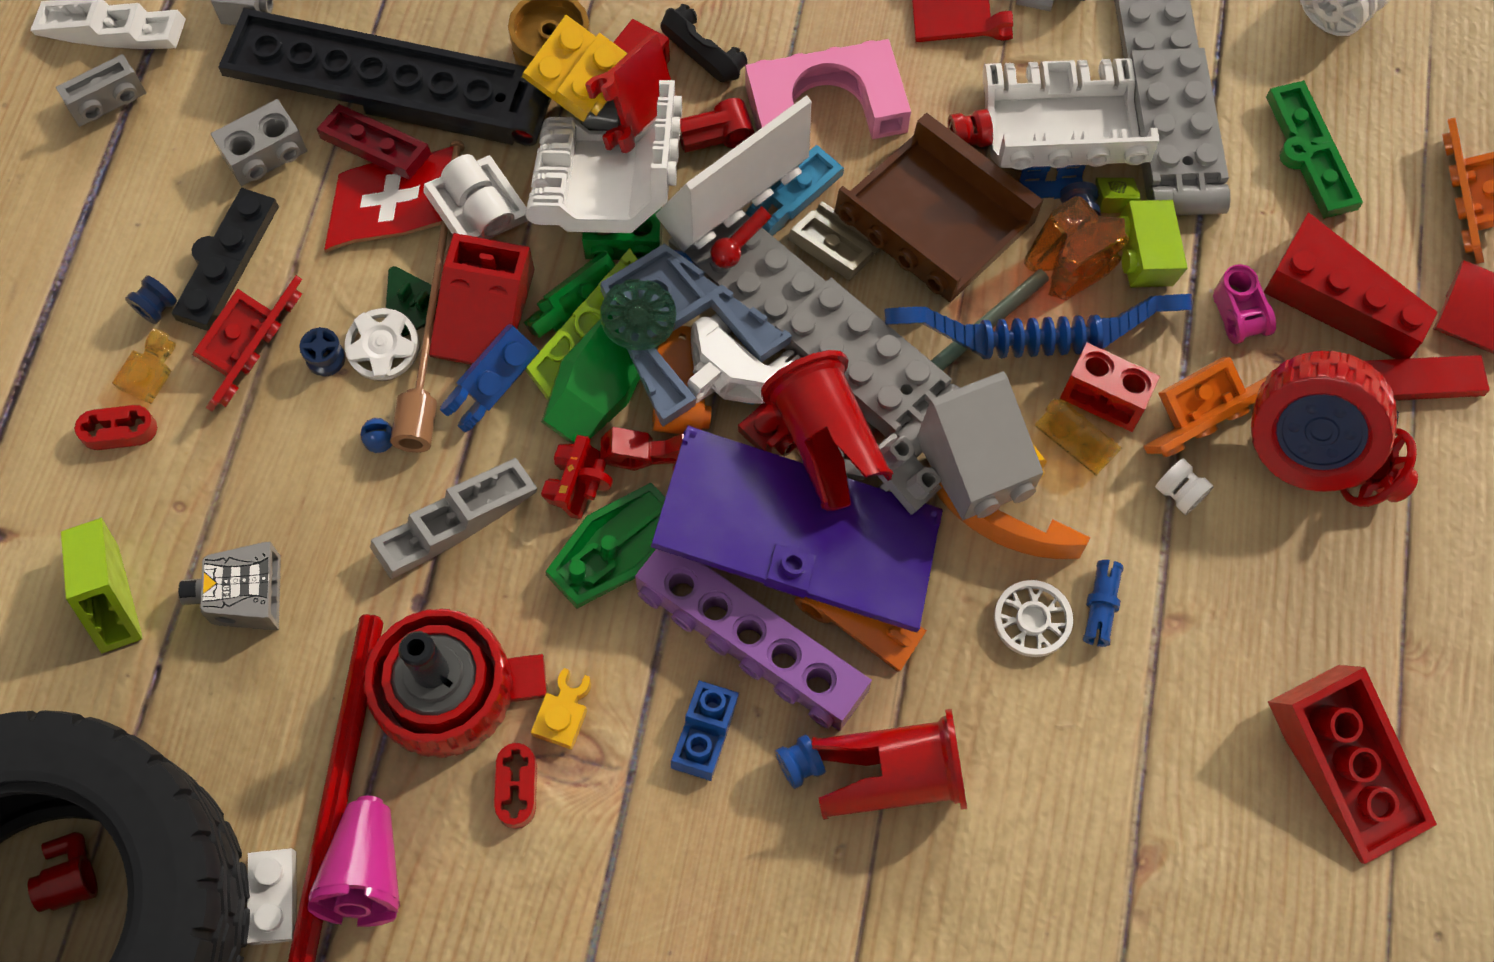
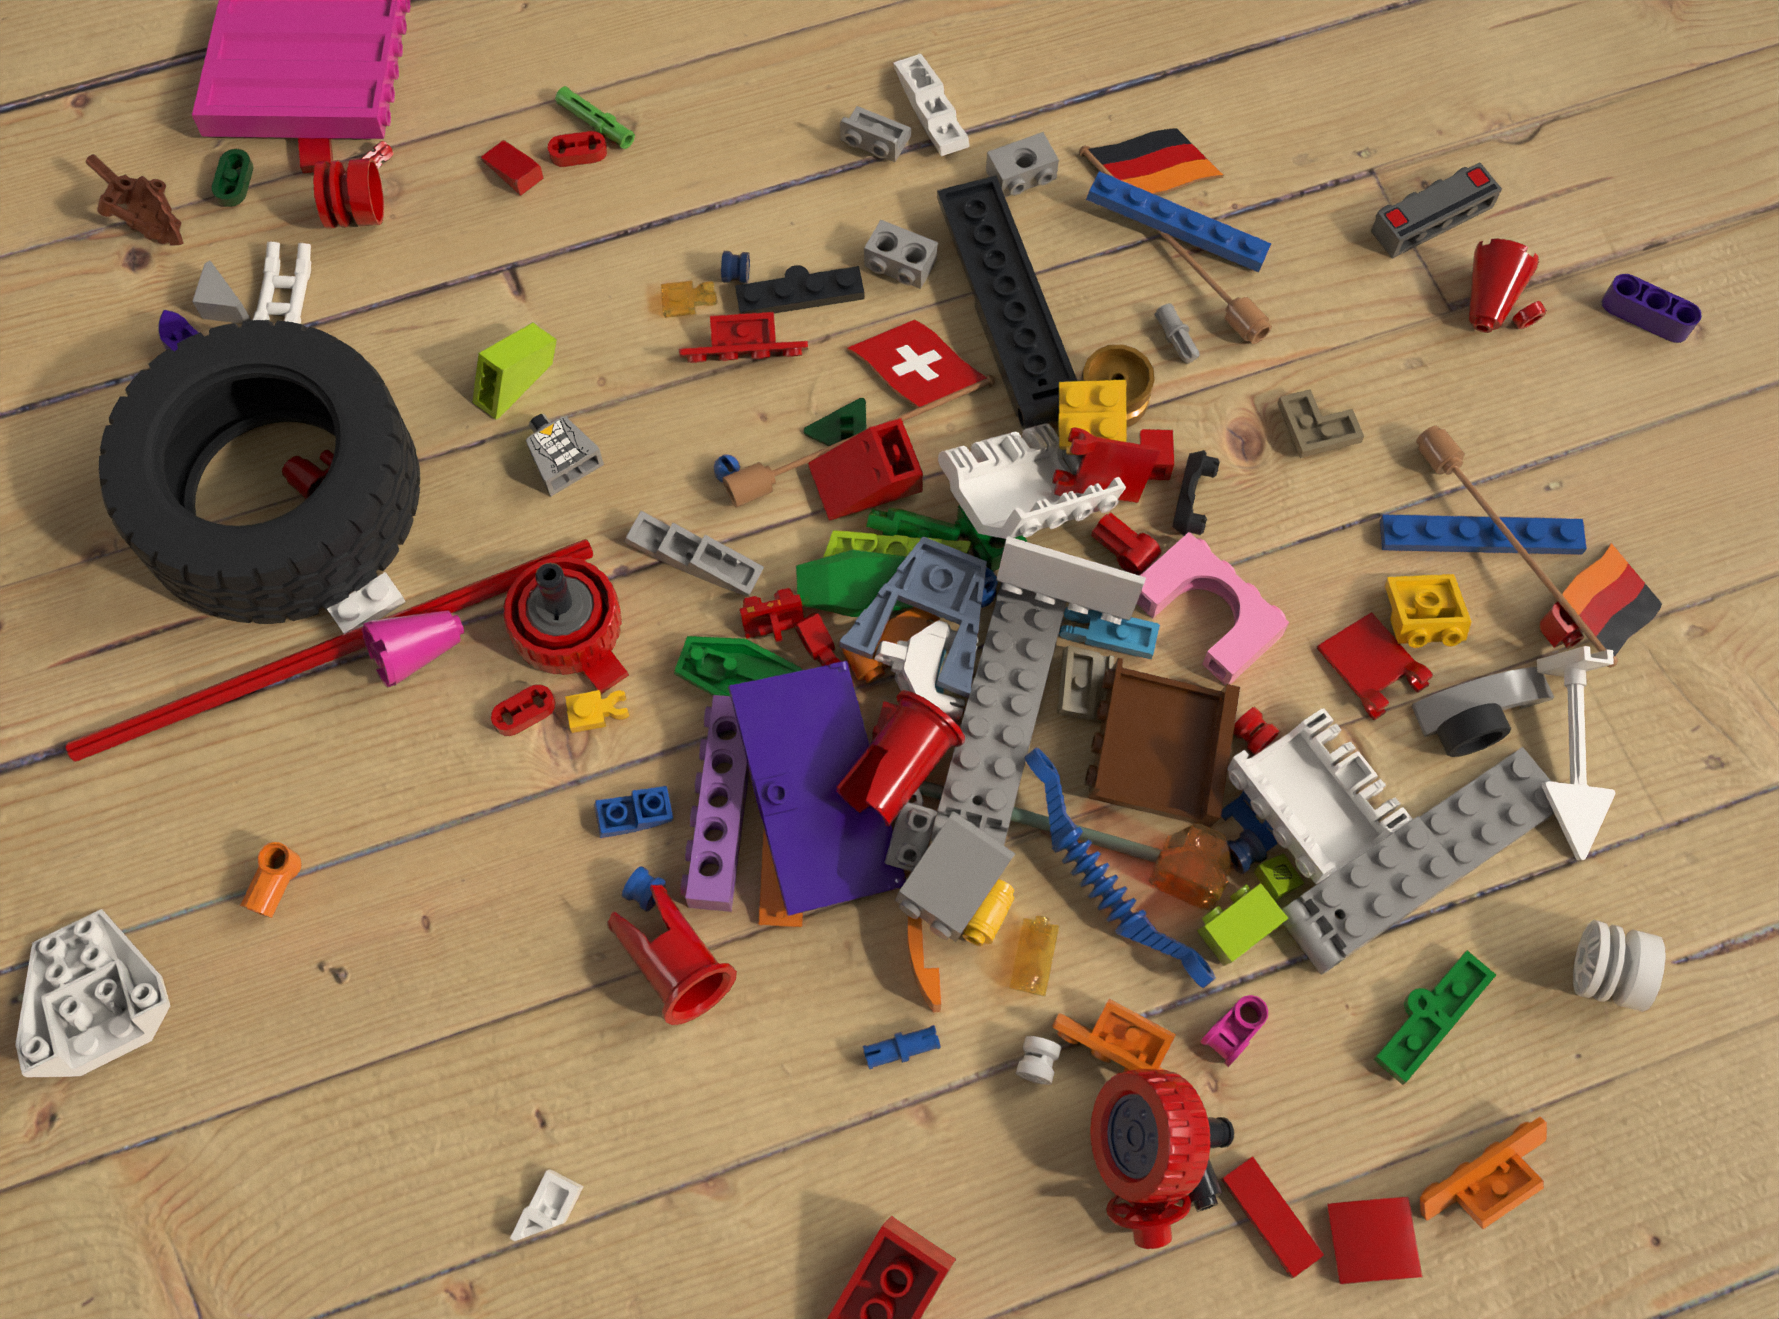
camera: 60 degrees right, 0 degrees up
(115, 427) = (627, 311): red beam -> none
(315, 344) = (767, 387): dark blue wheel -> none
(374, 141) = (951, 324): dark red plate -> none
(381, 344) = (797, 428): white wheel -> none
(475, 198) = (947, 416): white plate -> none
(490, 376) = (814, 512): blue hinge -> none
(638, 314) = (910, 575): clear green wheel -> none
(727, 251) = (1015, 610): red bar -> none
(1033, 618) = (858, 1000): white wheel -> none
(1110, 387) = (1079, 955): red brick -> none
(1349, 292) = (1307, 1102): red wedge -> none

